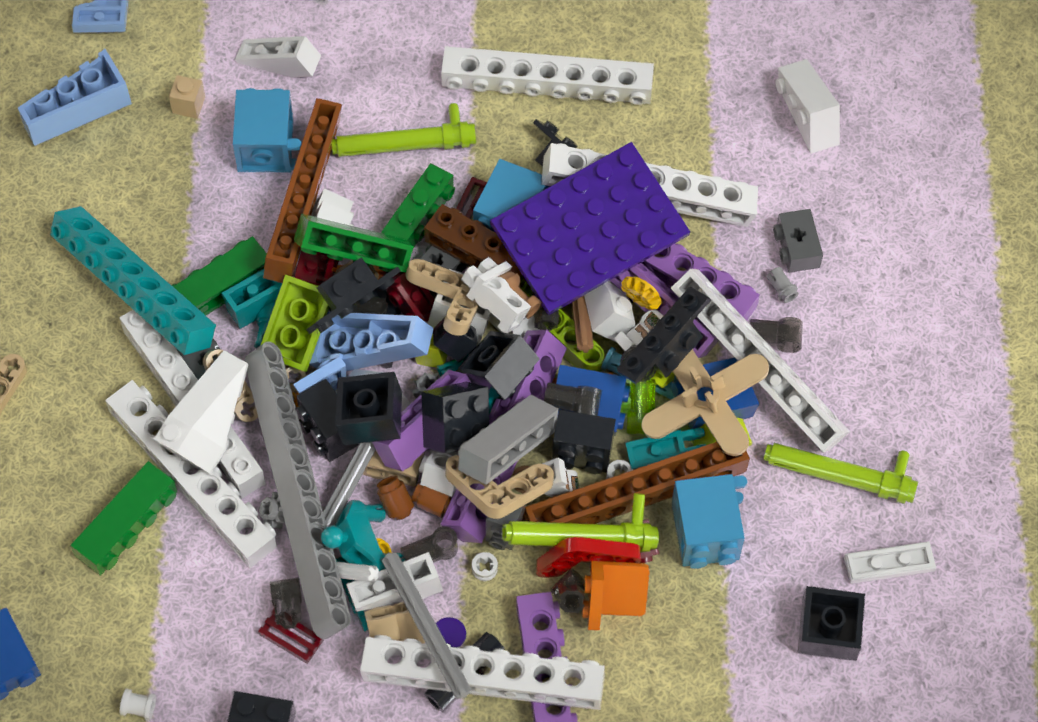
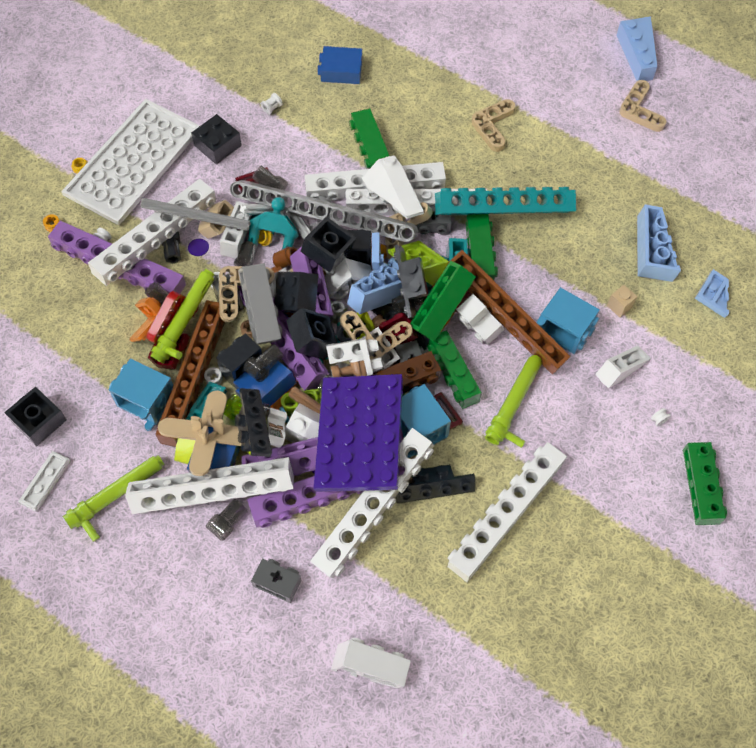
camera: 125 degrees right, 0 degrees up
(564, 479) = (228, 333): white leg -> none
(641, 292) = (296, 435): yellow gear -> none
(785, 289) = (255, 549): light grey pin -> none

